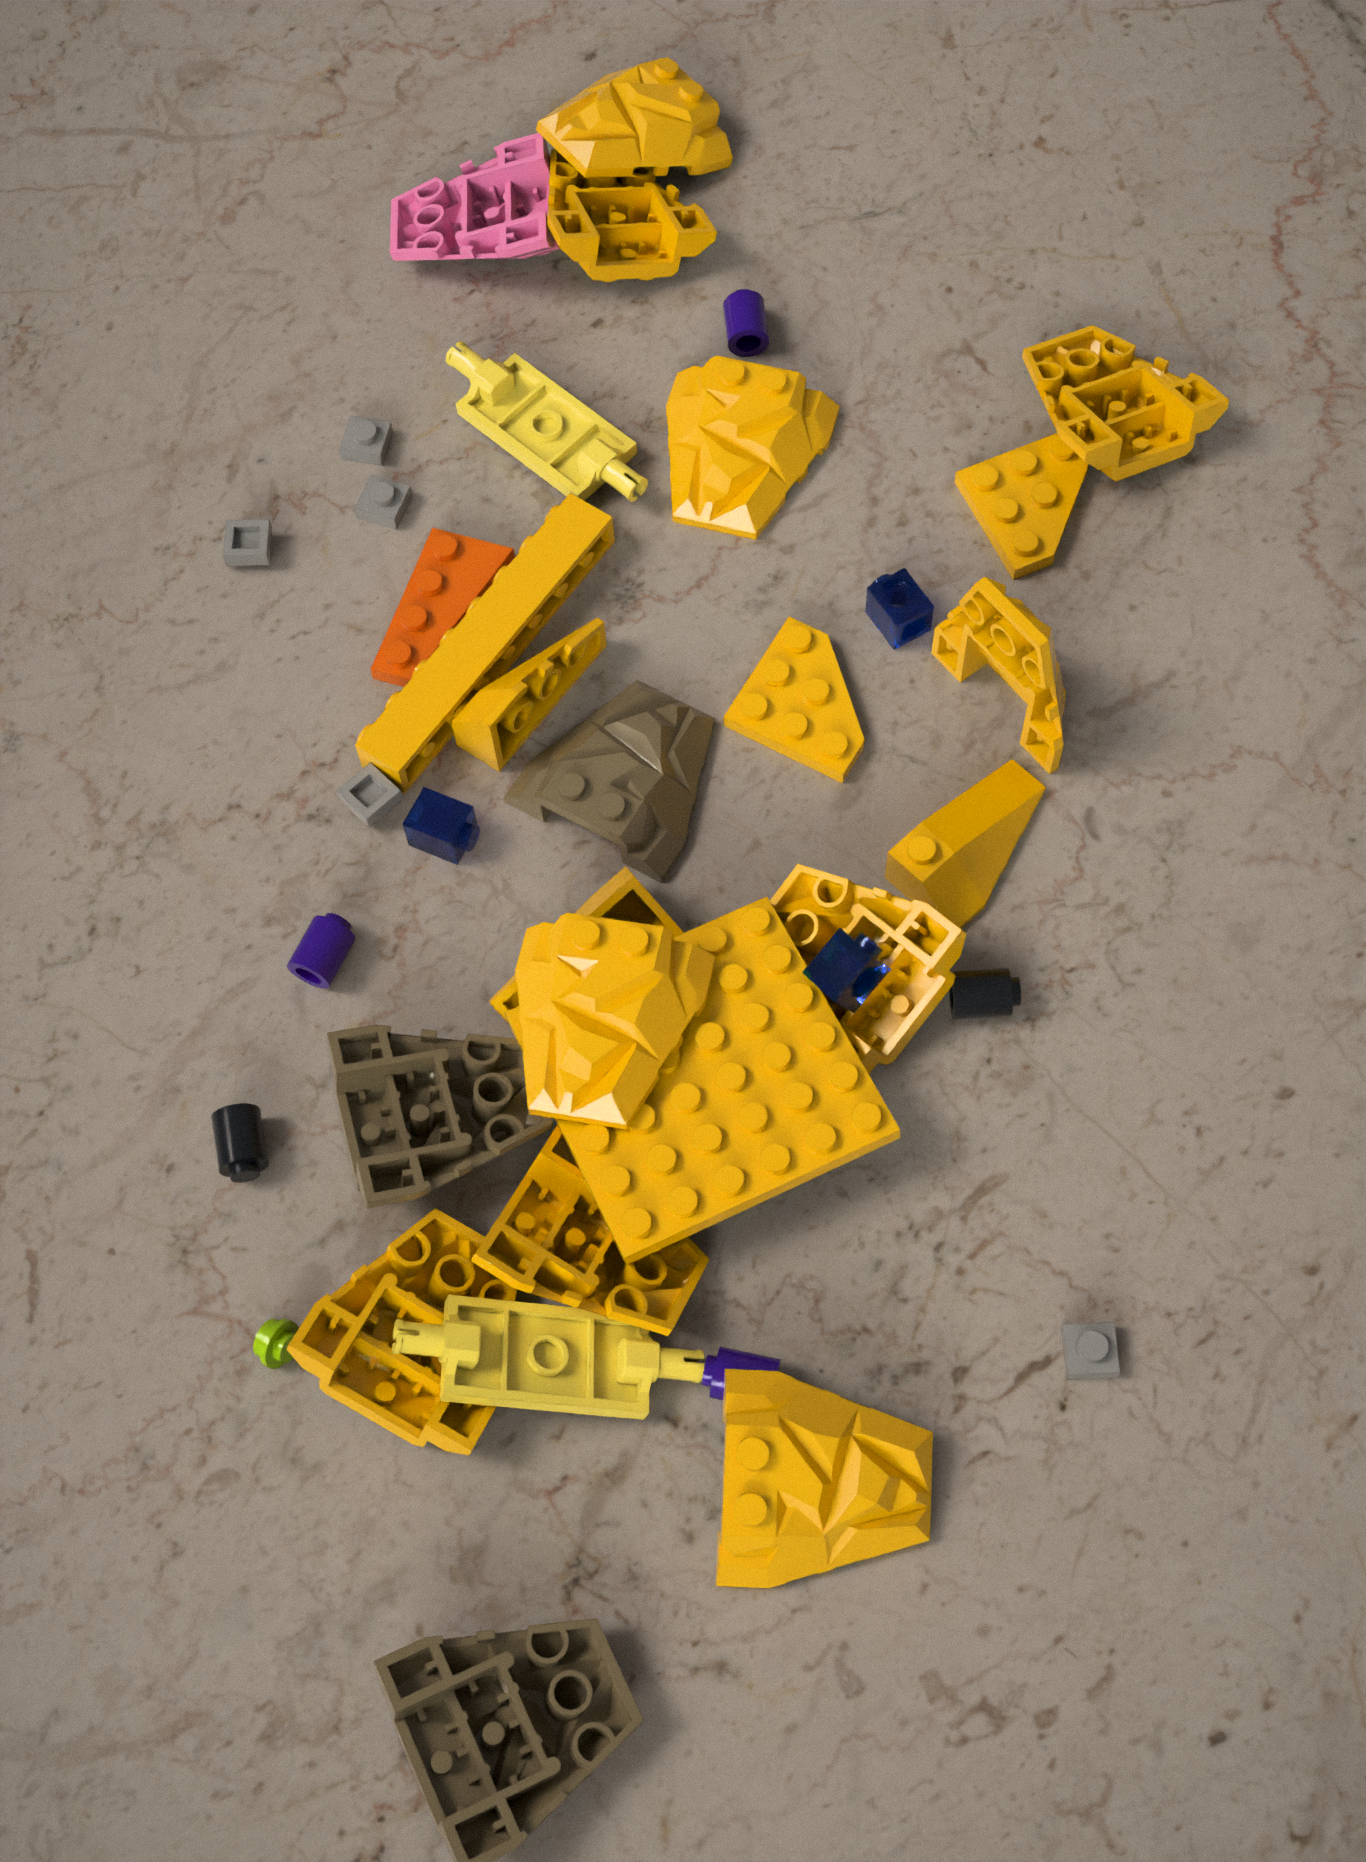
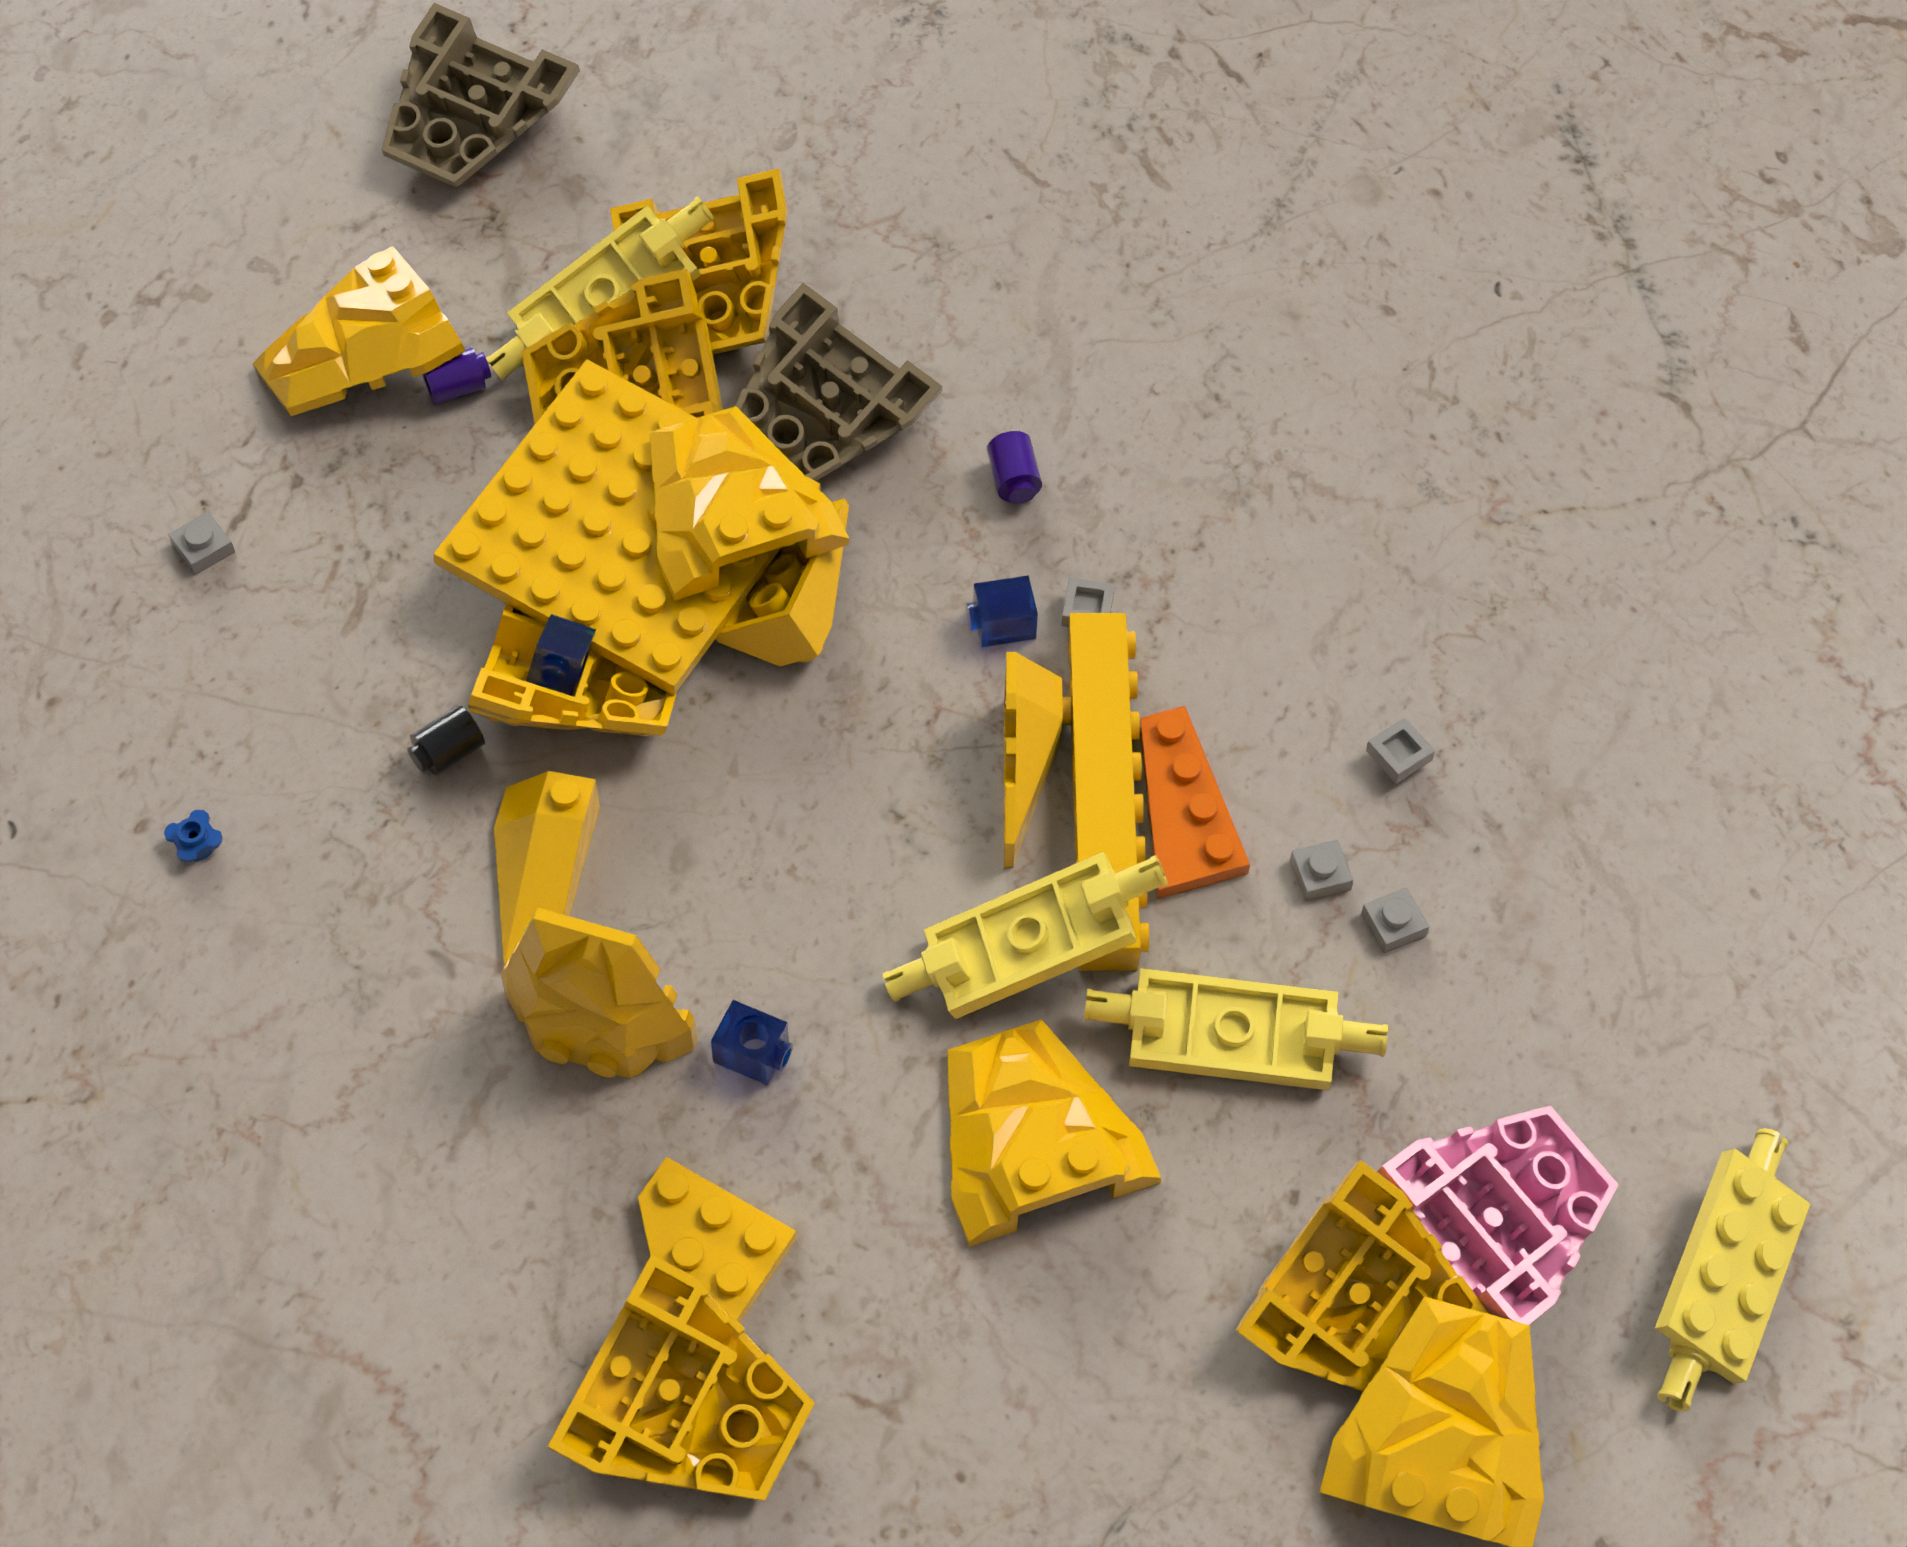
camera: 140 degrees right, 5 degrees down
(240, 1142) = (954, 312): black brick -> none
(273, 1340) = (812, 217): lime plate -> none
(366, 120) = (1730, 1270): none -> light yellow plate
(625, 776) = (888, 746): dark tan wedge -> none
(642, 544) = (1028, 935): none -> light yellow plate
(745, 323) = (1134, 1270): dark purple brick -> none
(800, 703) = (782, 910): yellow plate -> none
(1246, 1055) = (194, 848): none -> blue plate

